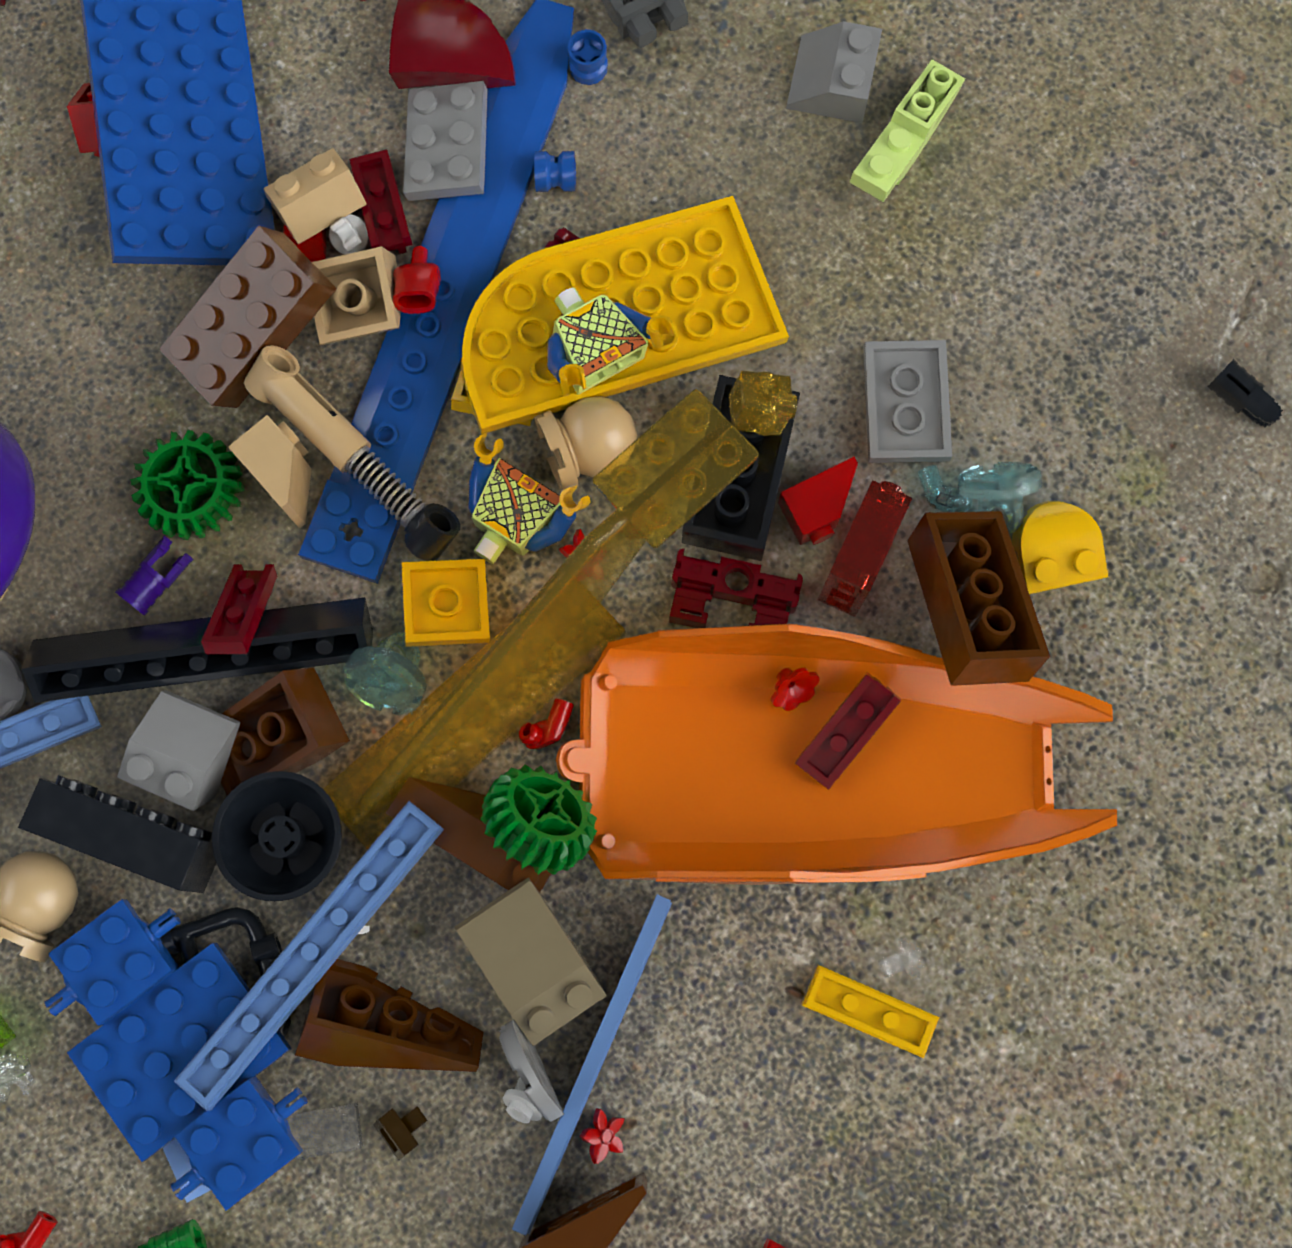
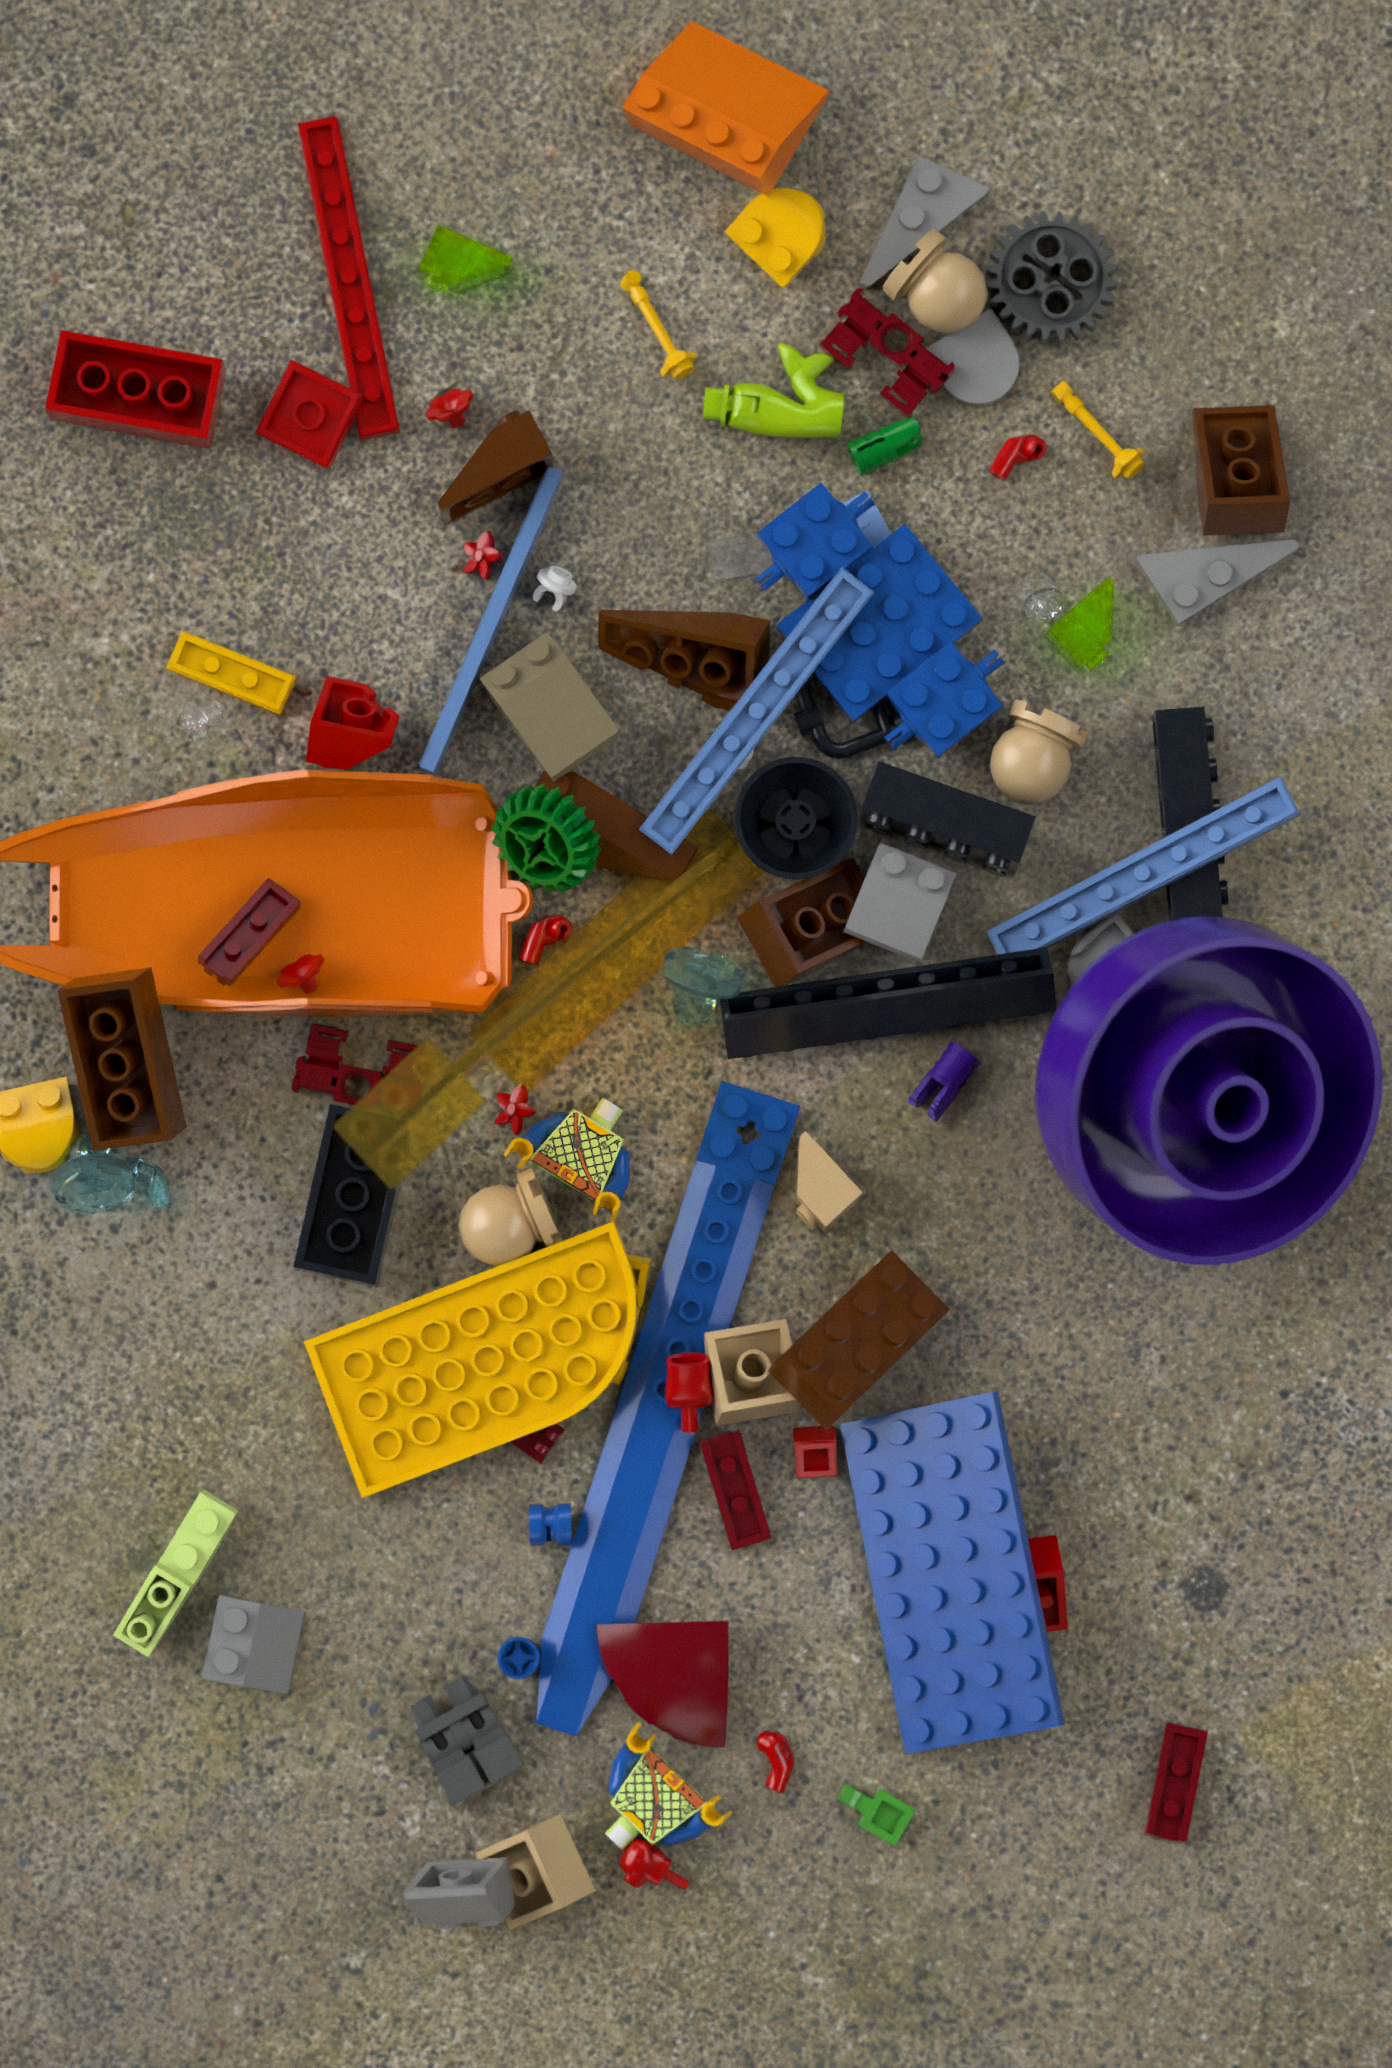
camera: 175 degrees right, 5 degrees up
(186, 455) = (916, 1141): green gear -> none
(239, 610) = (847, 1038): dark red hinge -> none
(278, 382) = (822, 1273): piece -> none
(315, 195) = (804, 1488): tan slope -> none
(349, 234) = (767, 1452): white plate -> none
(398, 1131) = (672, 556): dark brown tile -> none
(445, 141) = (668, 1558): light grey plate -> none
(445, 602) = (648, 1056): yellow plate -> none
(528, 1064) = (548, 610): light grey tile -> none
(599, 340) = (498, 1312): torso -> none
(744, 949) = (348, 725): none -> red slope
(762, 403) = (331, 1242): clear yellow brick -> none
(818, 502) = (273, 1165): red slope -> none
(865, 547) = (231, 1104): clear red window -> none
(907, 401) = (182, 1275): light grey plate -> none

